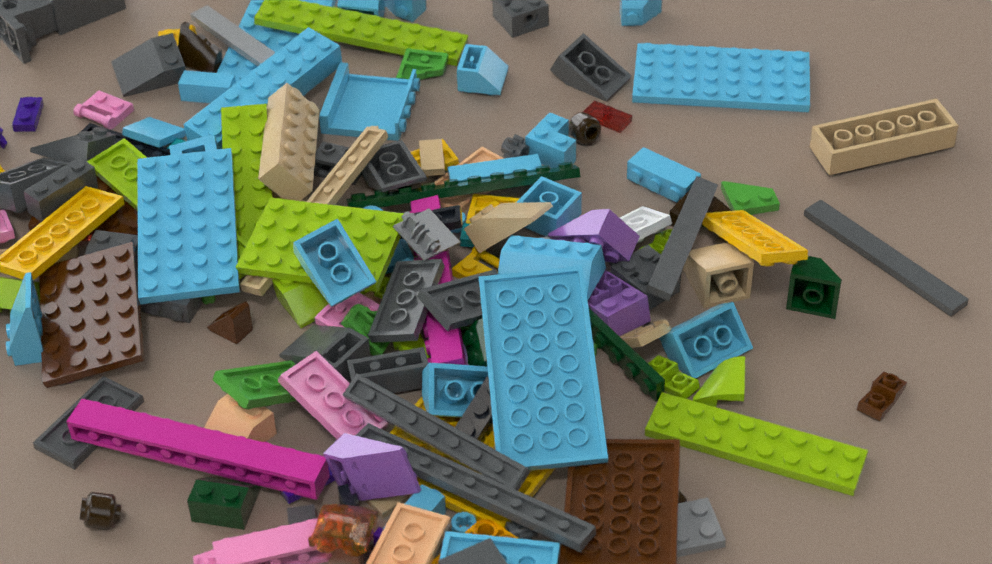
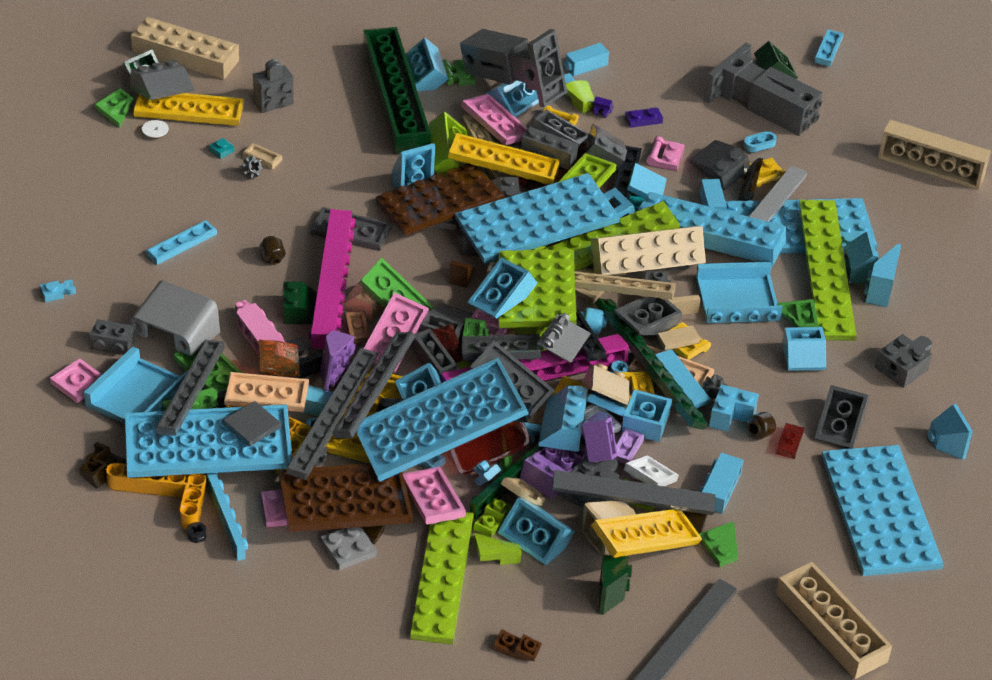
camera: 70 degrees right, 0 degrees up
(127, 34) = (760, 141): none -> medium azure plate
(302, 442) = (357, 326): none -> medium nougat plate
(367, 346) = (449, 340): none -> clear red plate
(530, 230) = (607, 403): none -> medium azure tile
(606, 365) = (485, 472): none -> medium azure tile
(646, 415) = (433, 495): none -> bright pink plate

